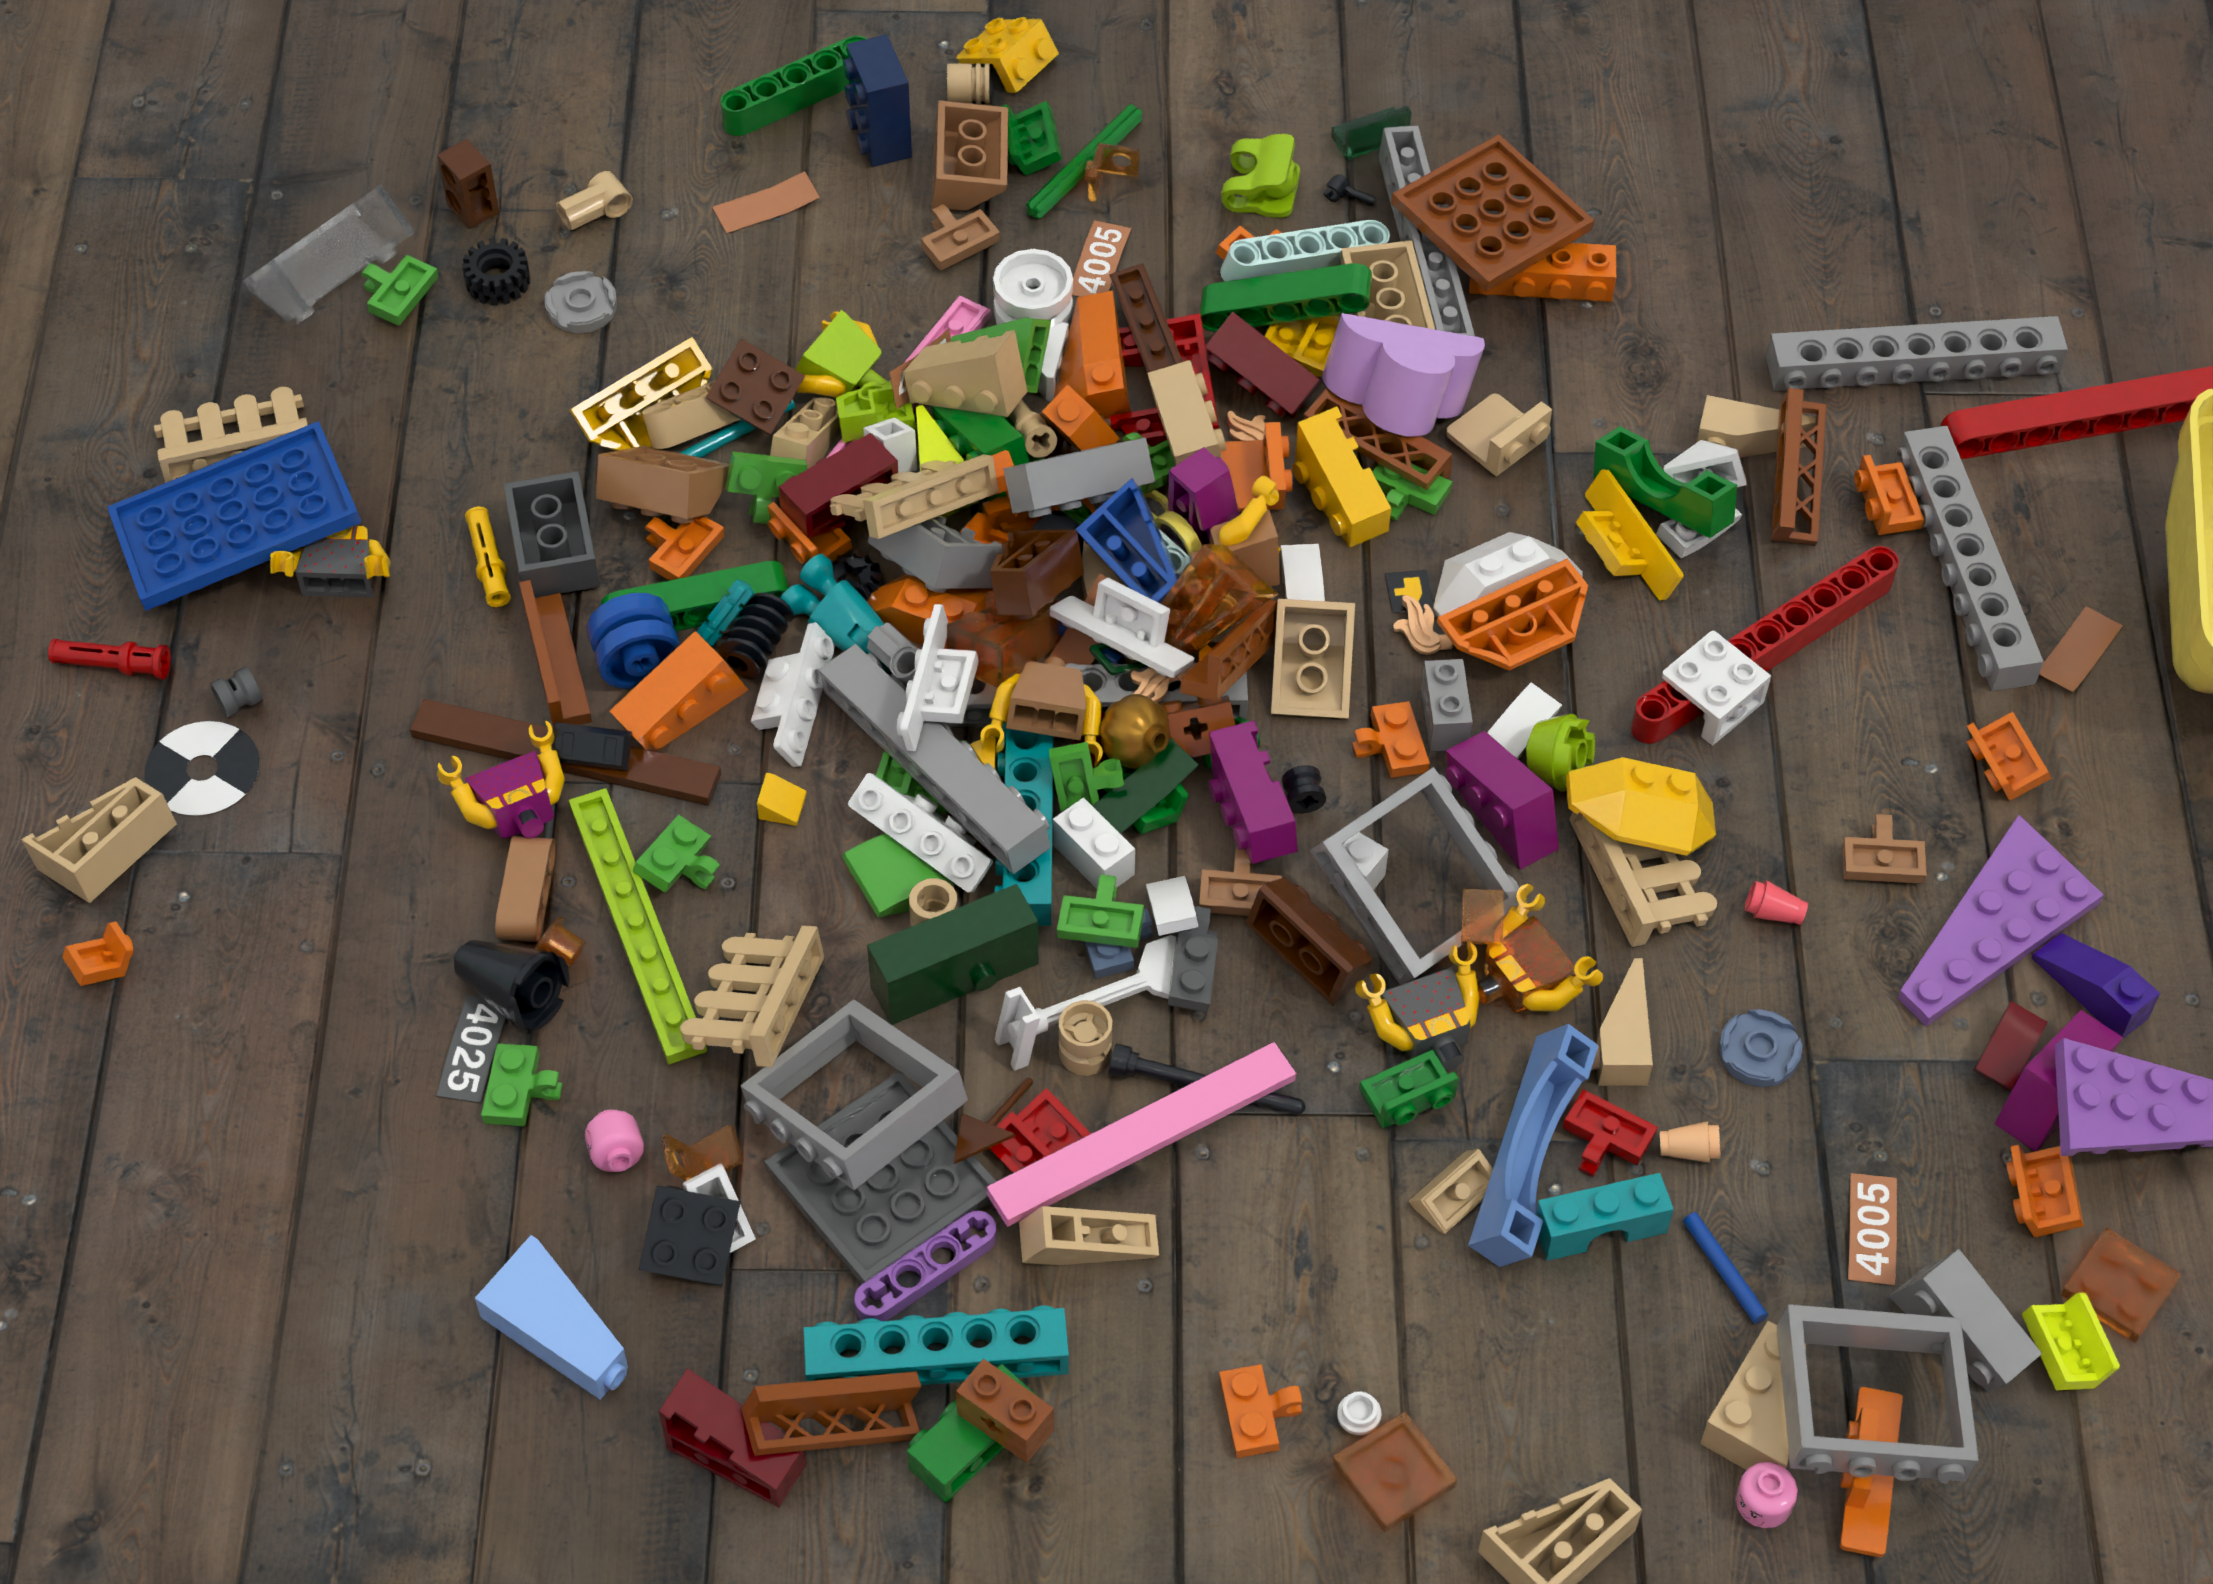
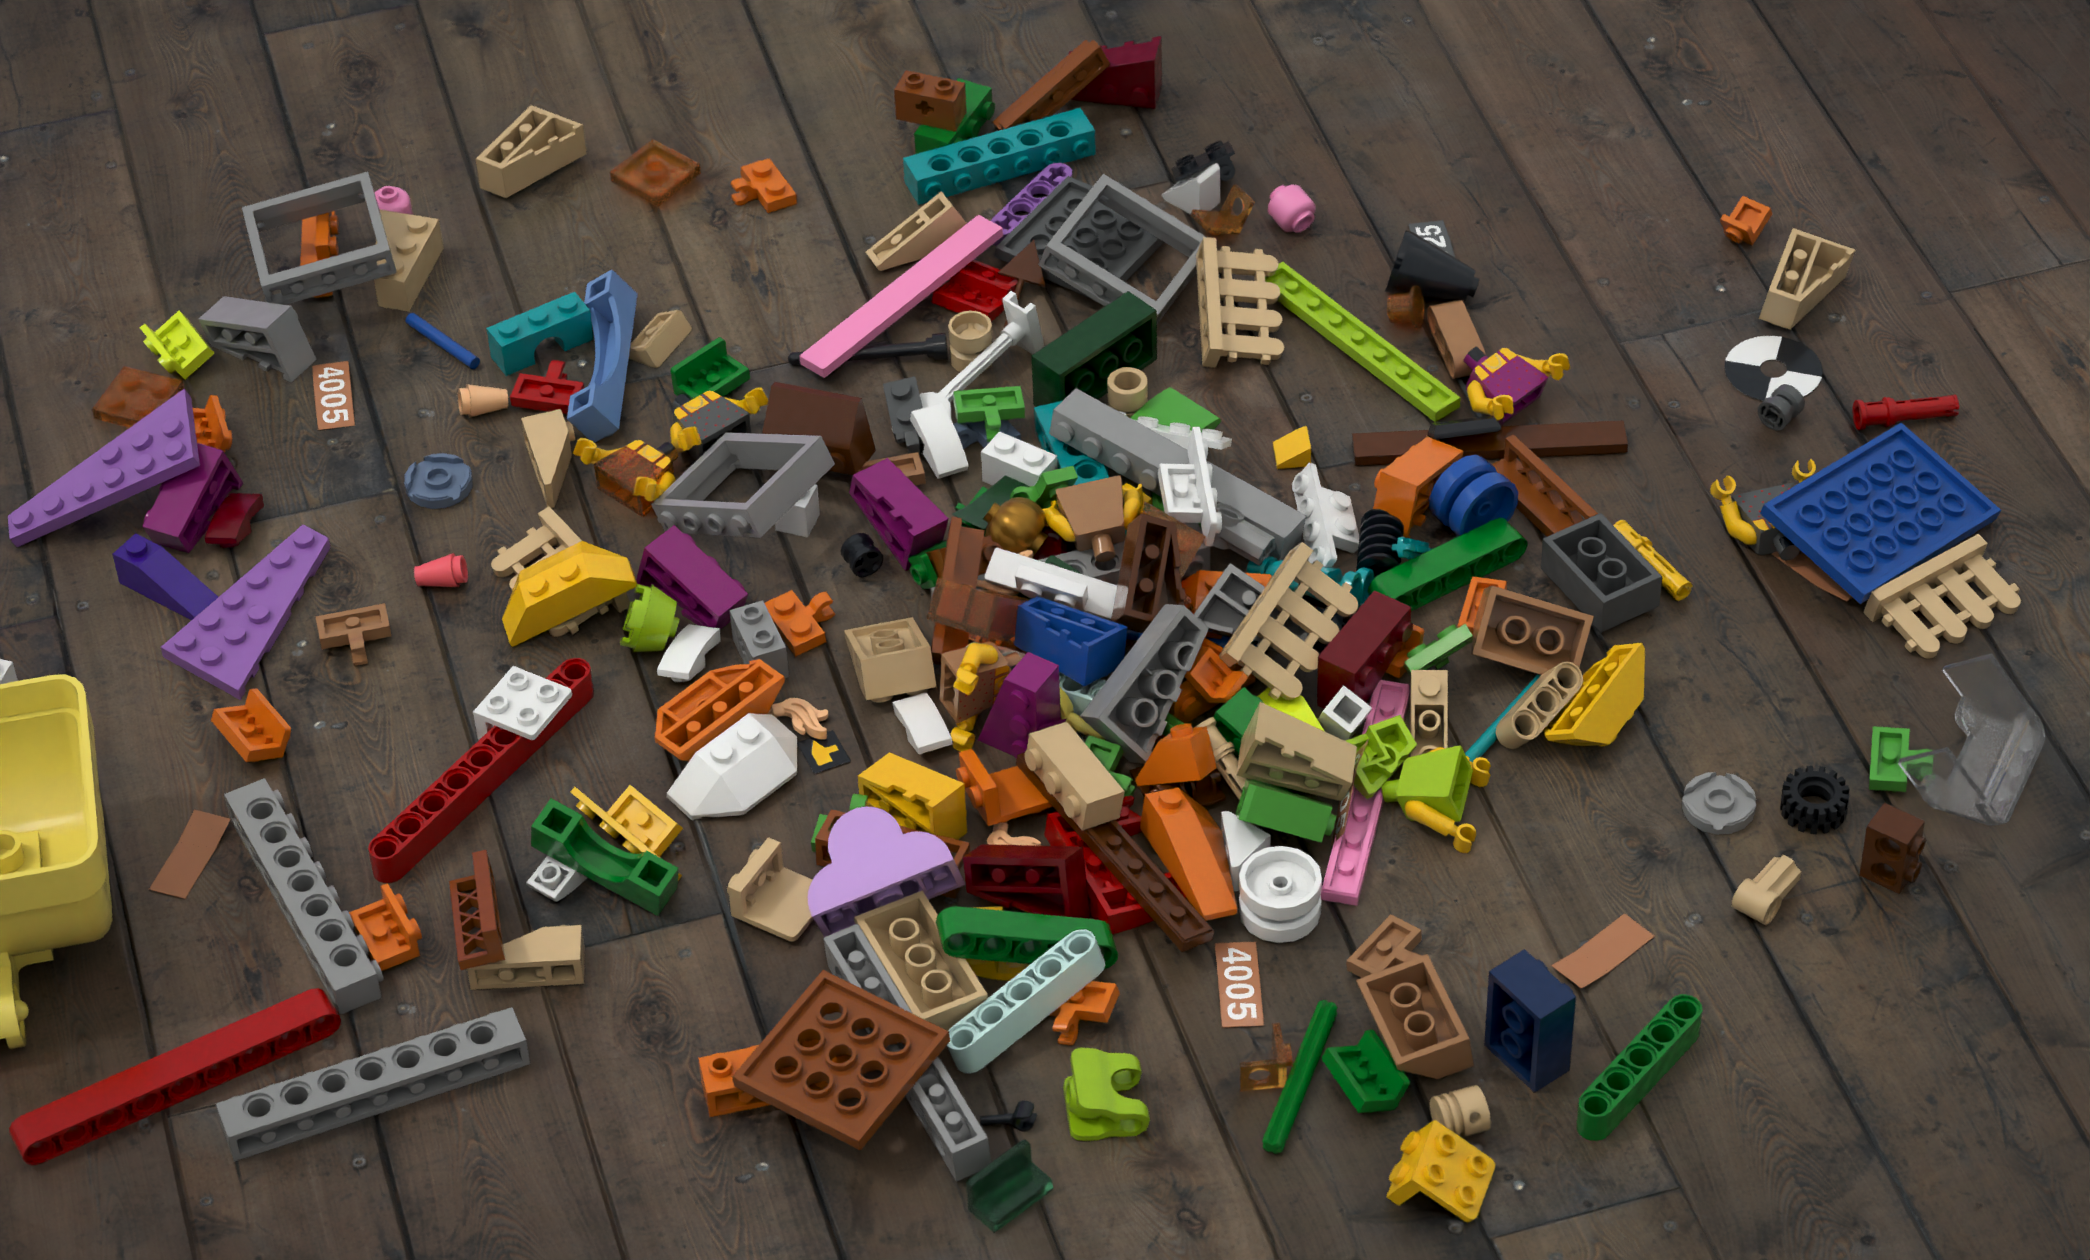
camera: 165 degrees right, 10 degrees down
(514, 1083) = (1384, 227): bright green plate -> none
(551, 1319) = (1272, 110): light blue slope -> none
(676, 854) = (1353, 388): bright green plate -> none
(755, 387) = (1493, 720): reddish brown hinge -> none
(1359, 1413) = (689, 198): white plate -> none
(1482, 917) = (680, 462): clear orange bracket -> none
(1707, 456) = (565, 899): white slope -> none

